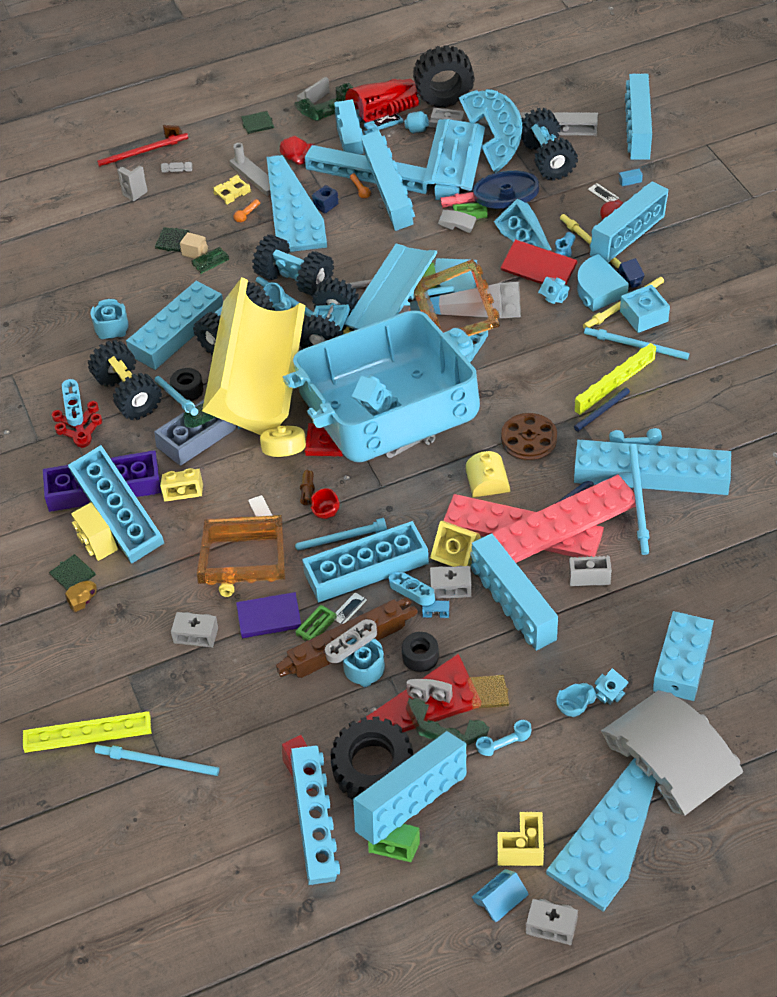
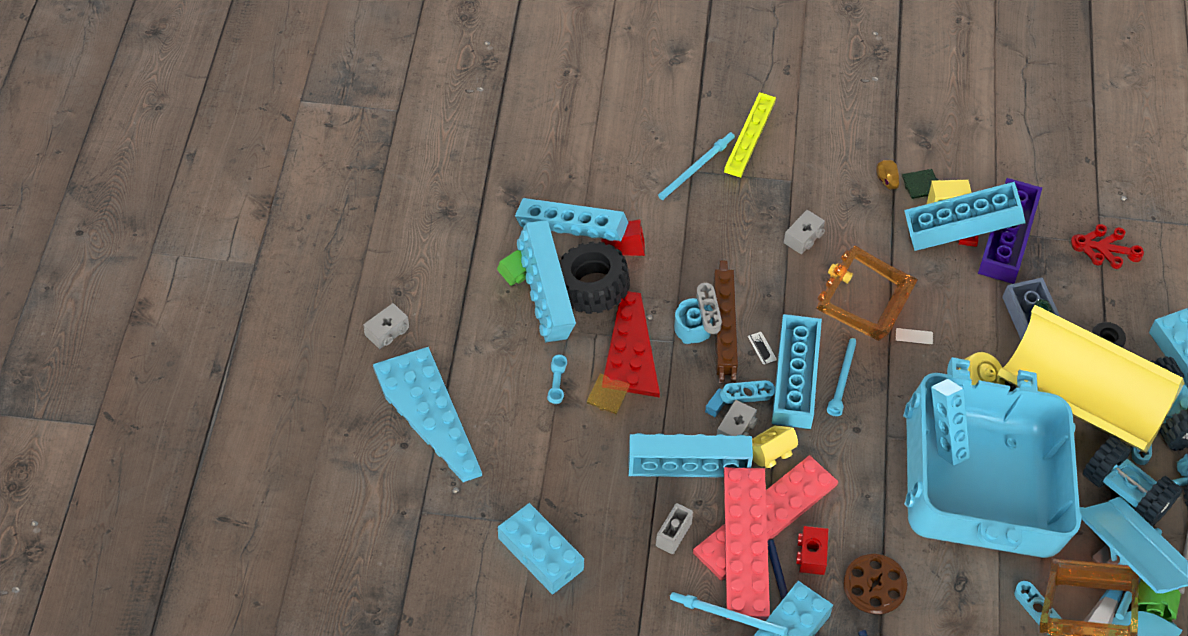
camera: 115 degrees right, 5 degrees up
(72, 408) = (1113, 237): medium azure beam -> none
(136, 394) = (1150, 286): black plate -> none
(181, 484) = (972, 282): light yellow brick -> none
(187, 405) = (1054, 304): medium azure bar -> none
(268, 615) = (789, 288): dark purple tile -> none
(307, 487) = (911, 373): reddish brown axle -> none
(319, 625) = (764, 328): bright green tile -> none
(325, 503) = (884, 376): red hair -> none
(417, 711) = (615, 326): clear green slope -> none
(418, 641) = (675, 376): black tyre -> none
(426, 687) = (633, 342): light grey slope -> none
(487, 474) = (844, 520): light yellow brick -> none
(501, 894) = (432, 309): dark azure panel -> none
(523, 847) = (454, 339): light yellow brick -> none
(532, 480) = (815, 539): none -> red brick
(575, 699) = (555, 444): medium azure hair -> none
(613, 681) = (547, 474): medium azure brick -> none
(675, 748) = (458, 477): light grey panel -> none

